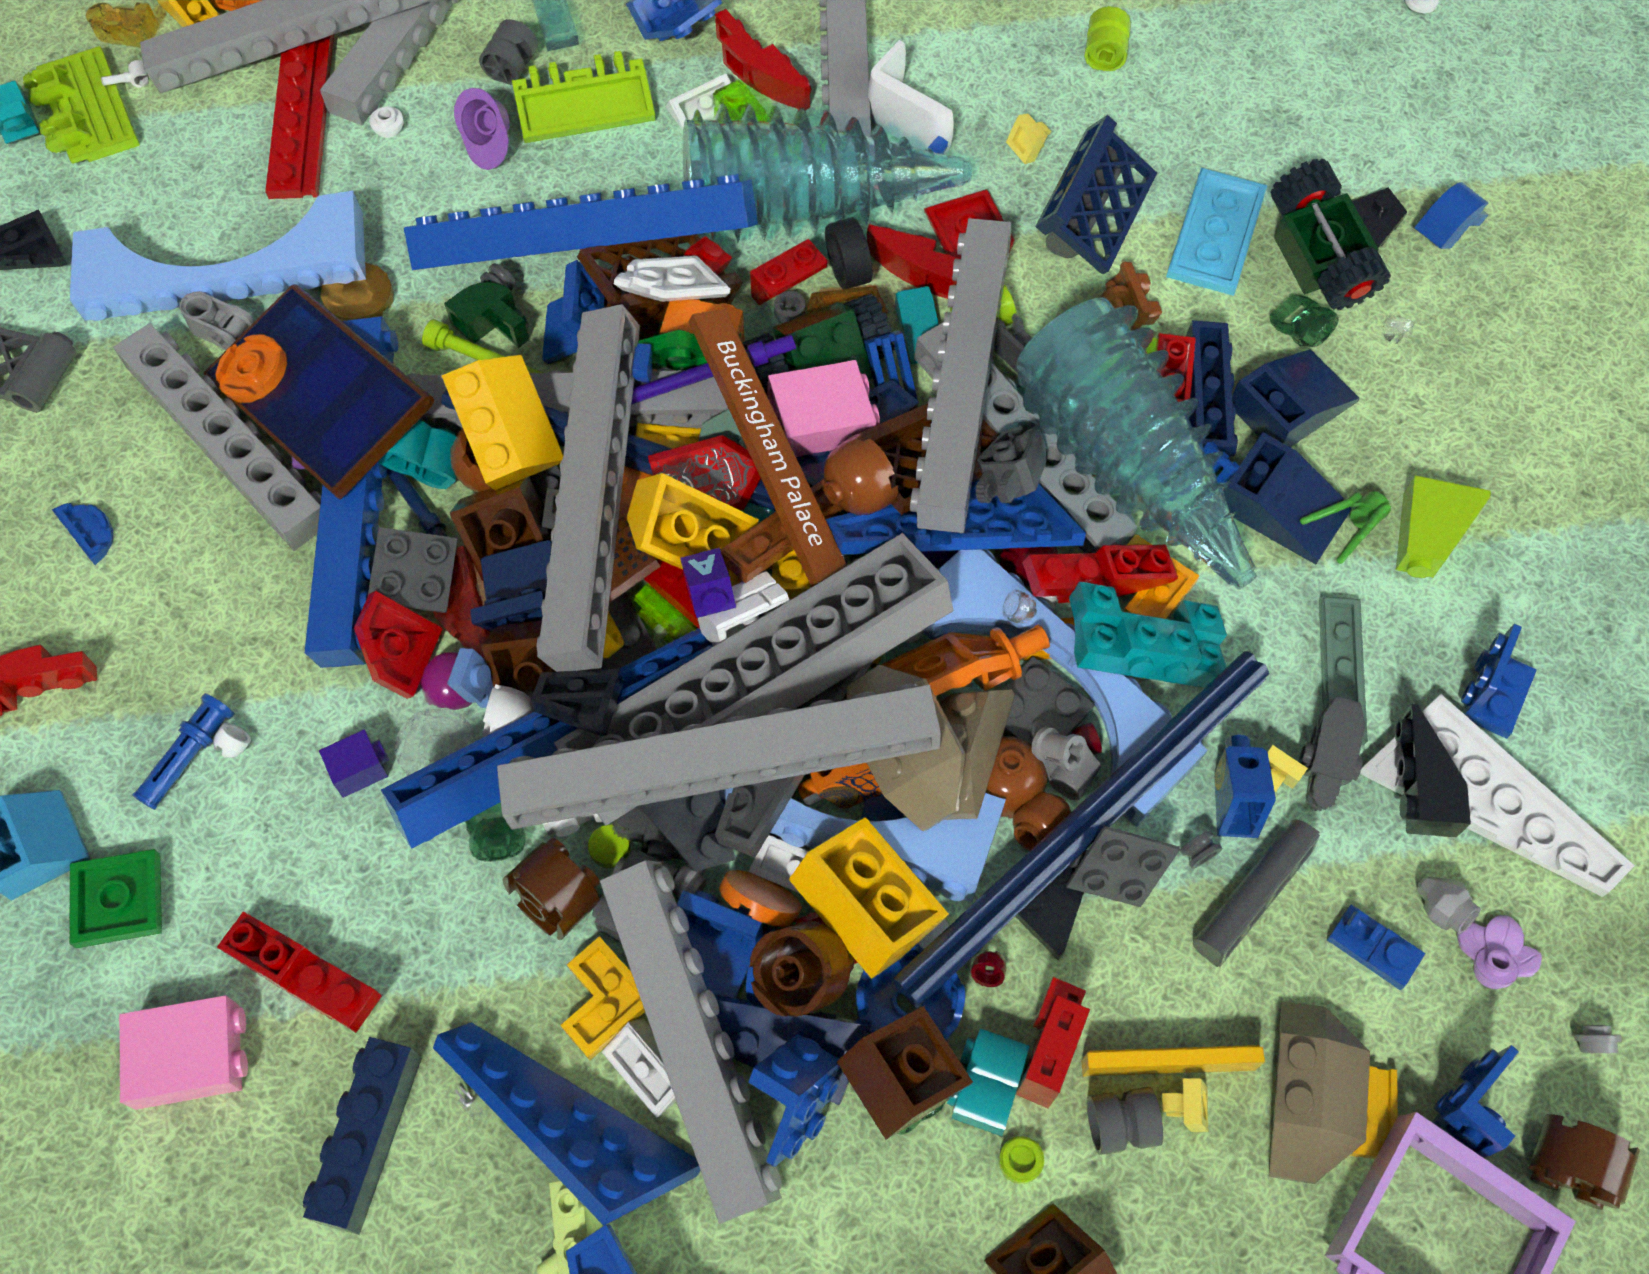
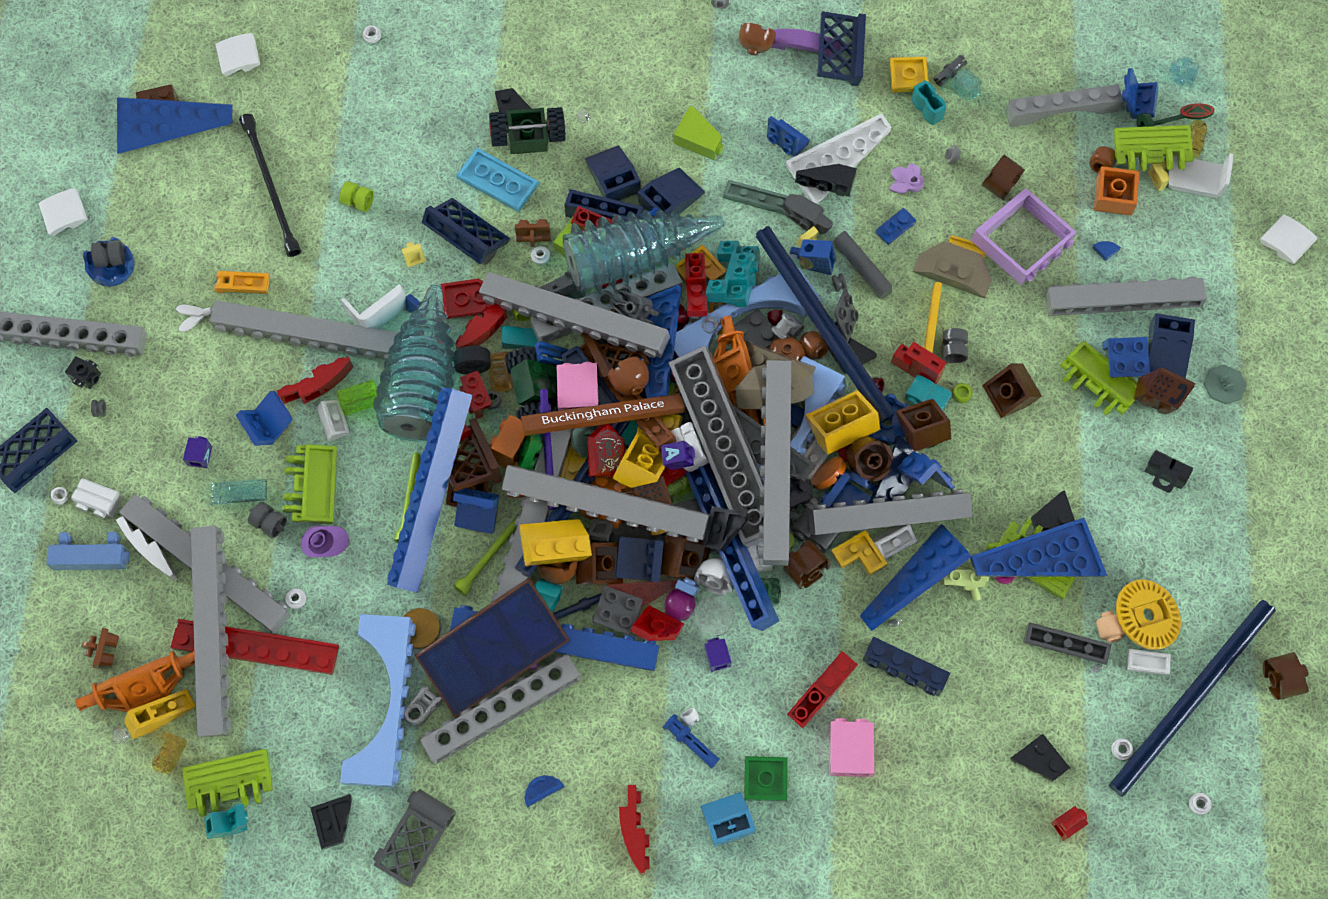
camera: 75 degrees left, 5 degrees up
(136, 76) = (212, 745): white hand -> none
(251, 369) = (468, 684): orange tile -> none
(485, 307) = (452, 555): dark green brick -> none
(498, 275) = (436, 548): dark grey bush -> none
(642, 363) = (539, 465): blue tile -> none
(671, 279) = (481, 445): white tile -> none
(1190, 1104) = (952, 318): light yellow tile -> none
(1308, 328) = (570, 154): clear green piece -> none
(1365, 514) = (684, 160): bright green plant -> none
(1448, 903) = (883, 191): light grey rock -> none
(1452, 216) = (525, 68): blue brick -> none
(1465, 1118) = (973, 213): blue bracket -> none

